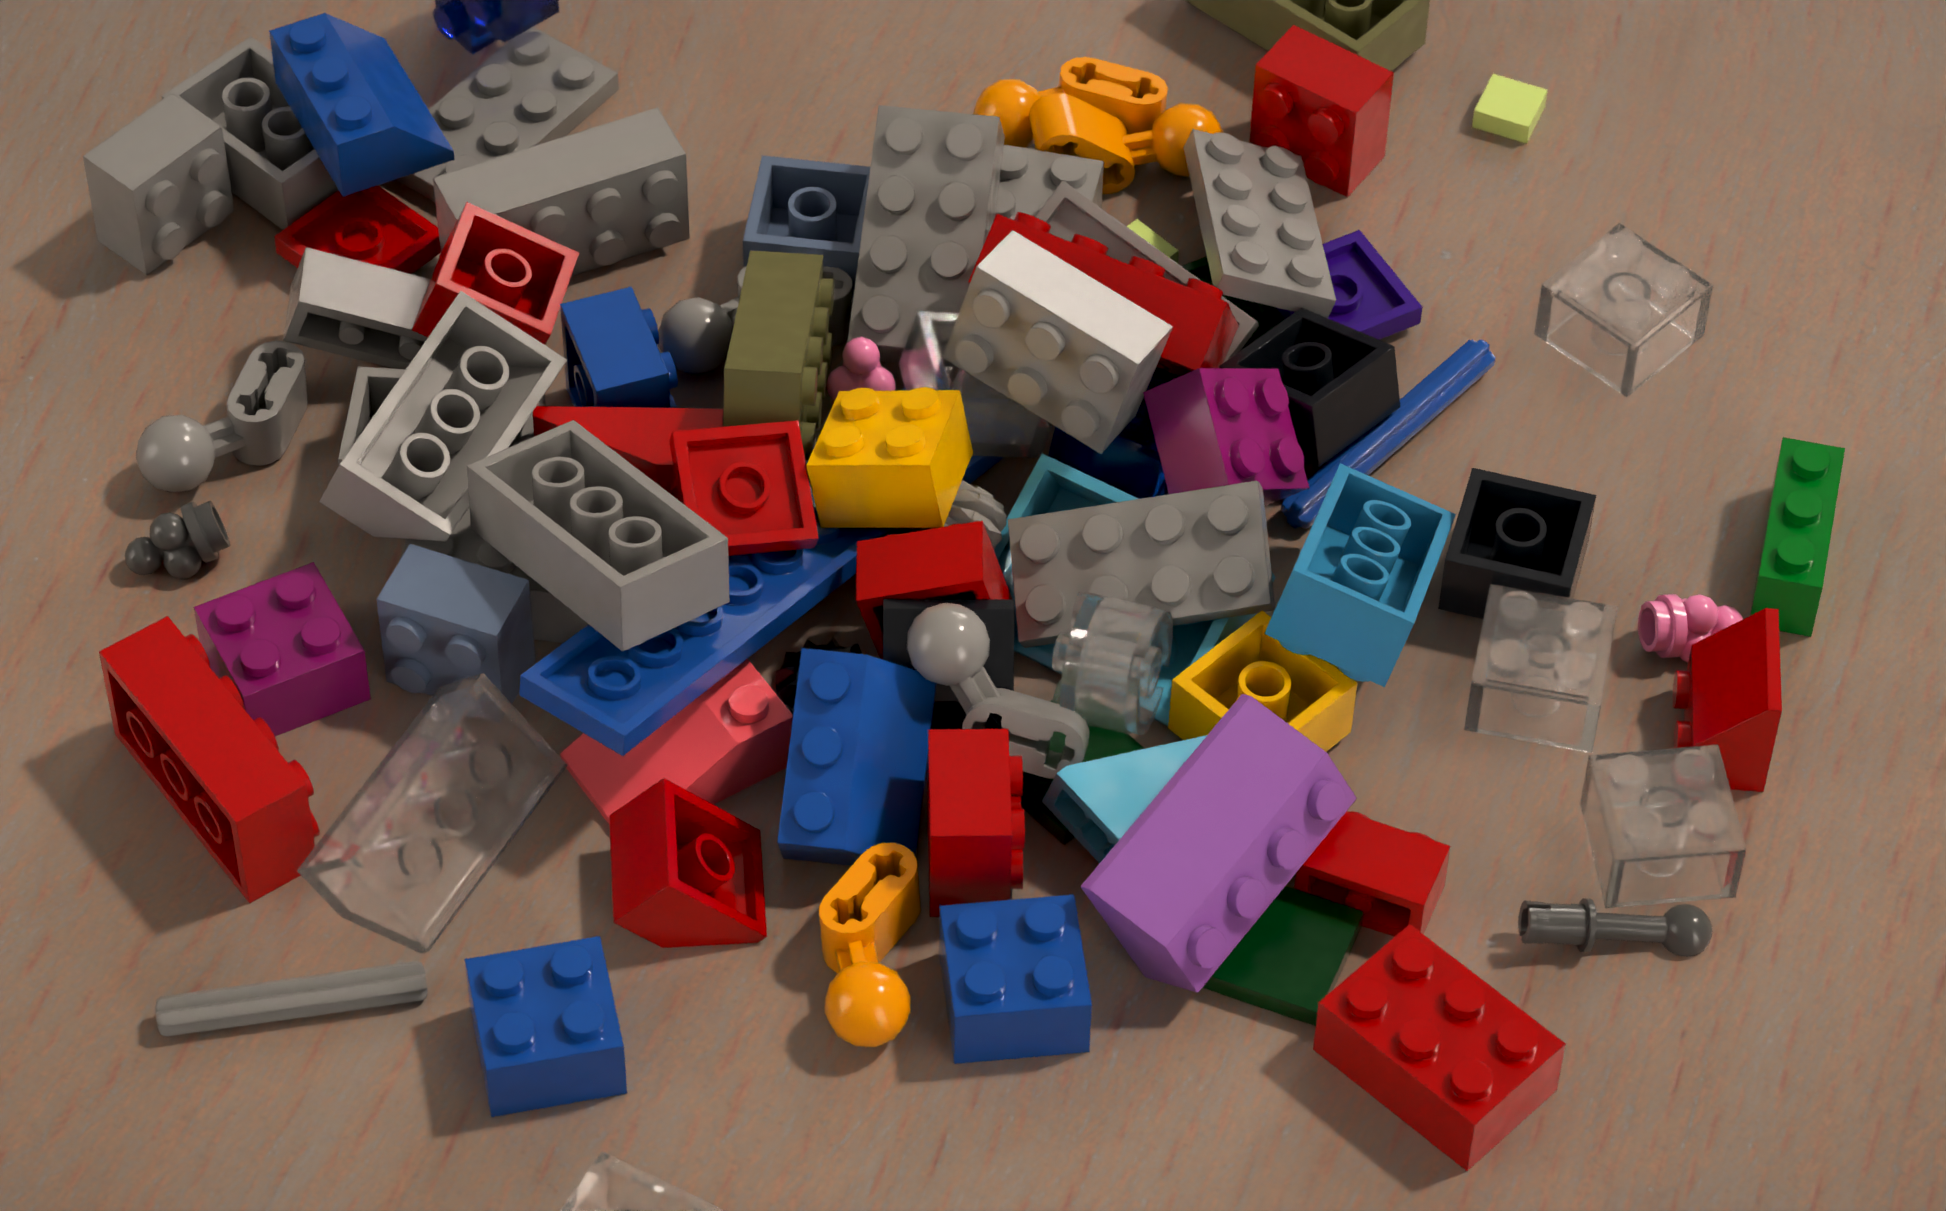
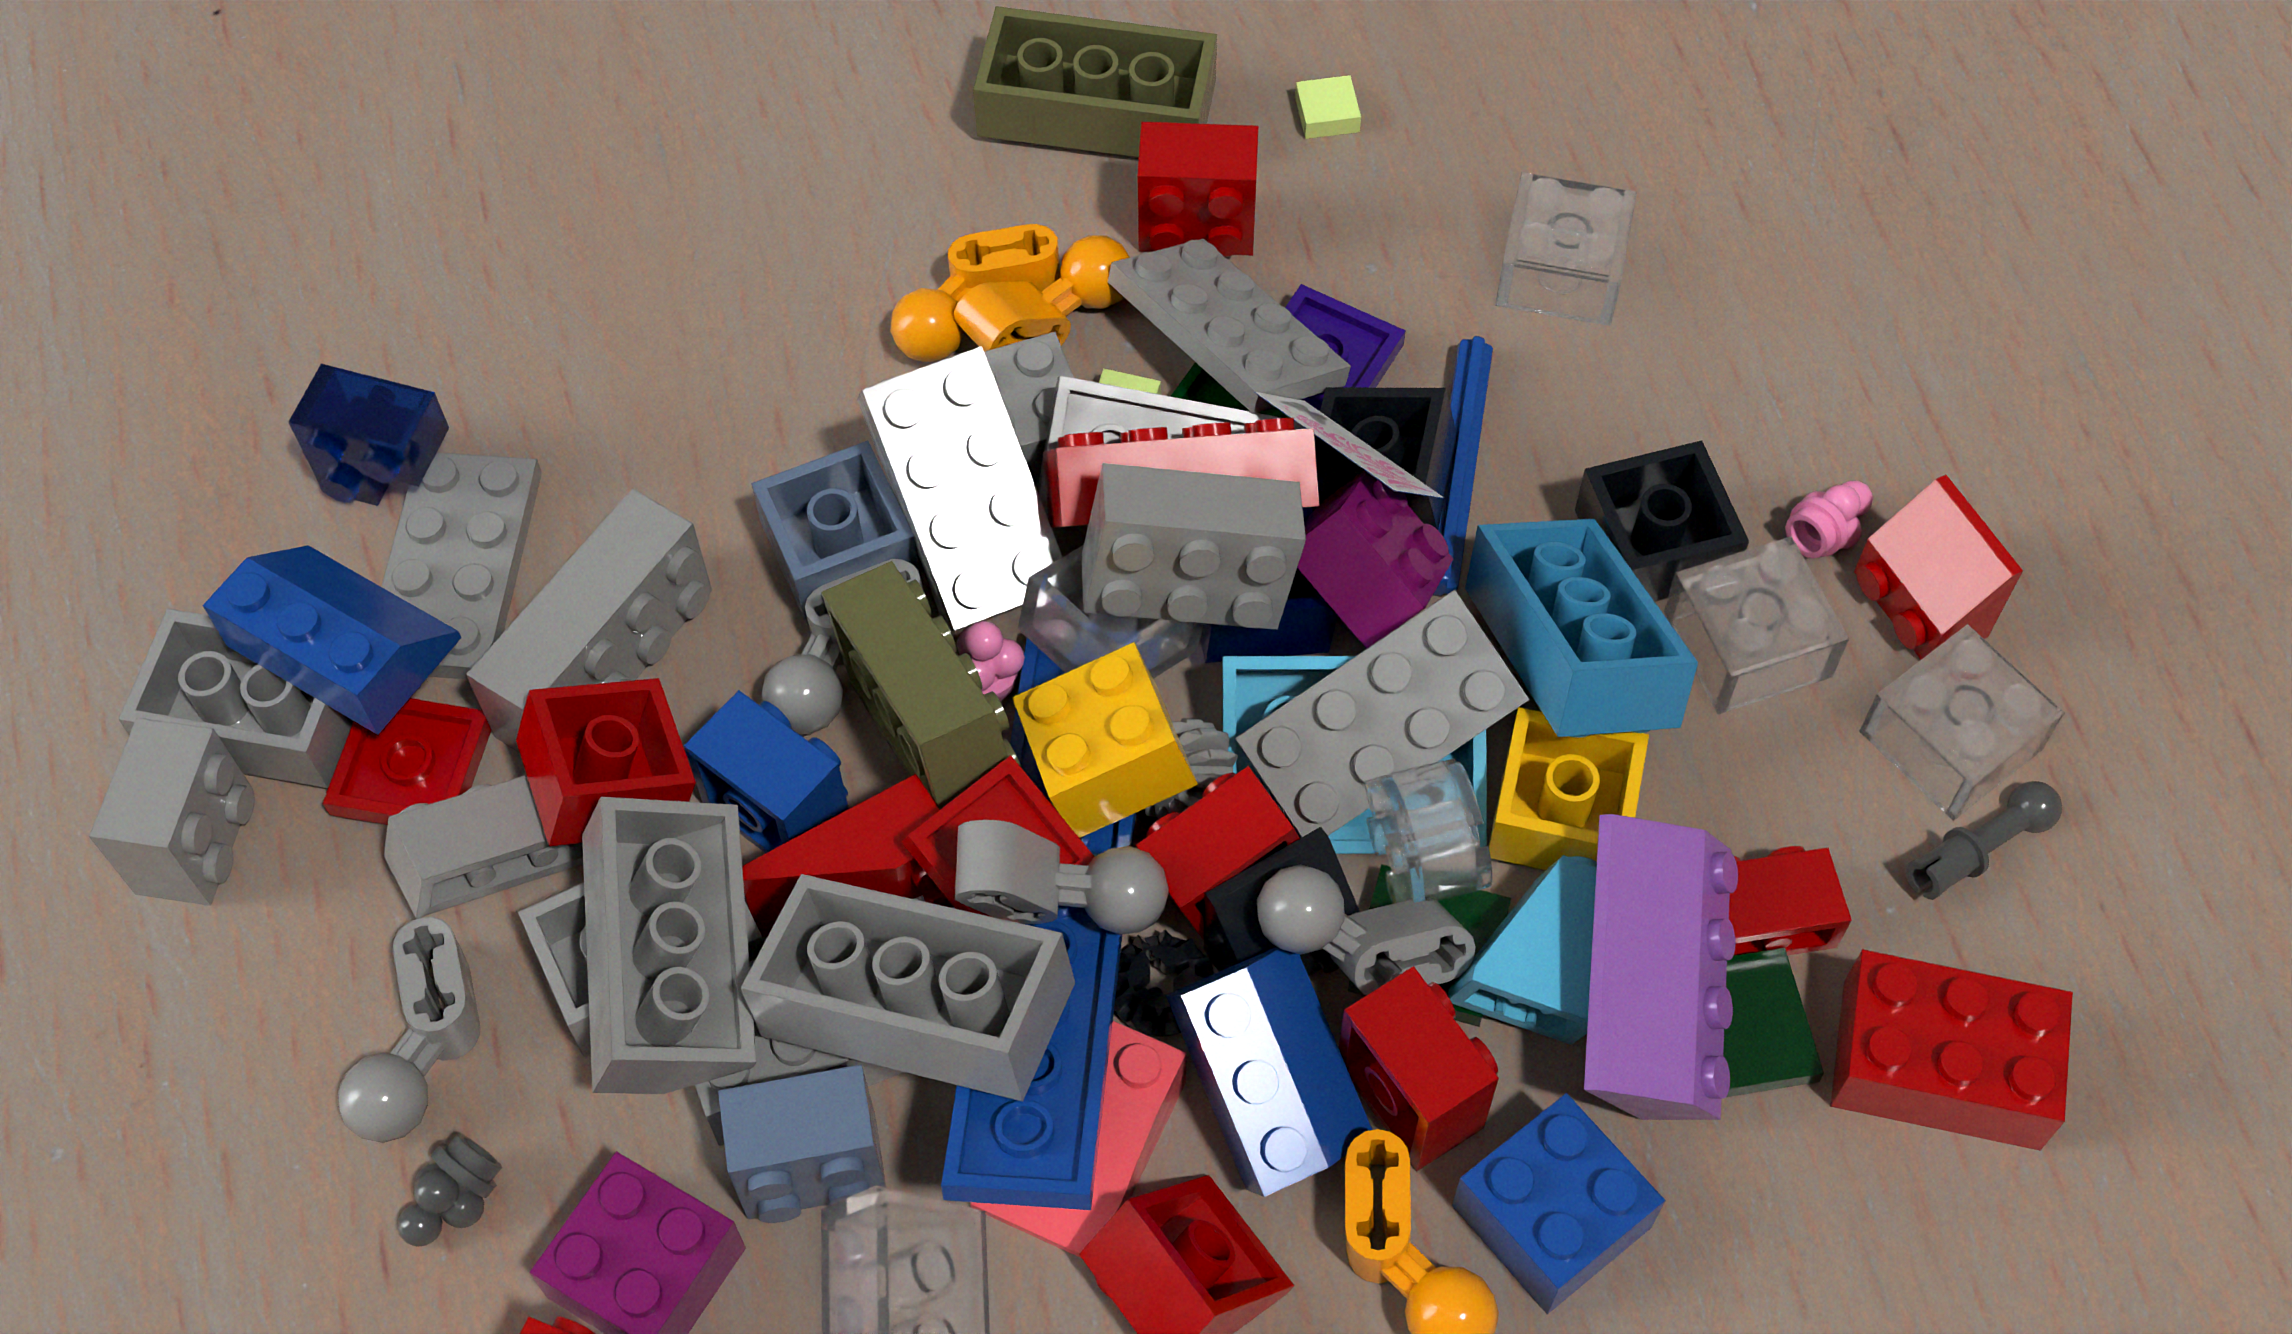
camera: 30 degrees left, 10 degrees up
(737, 496) = (1021, 880): none -> light grey beam
(1267, 344) = (1350, 445): none -> white sticker
(1798, 533) = (1856, 387): green brick -> none

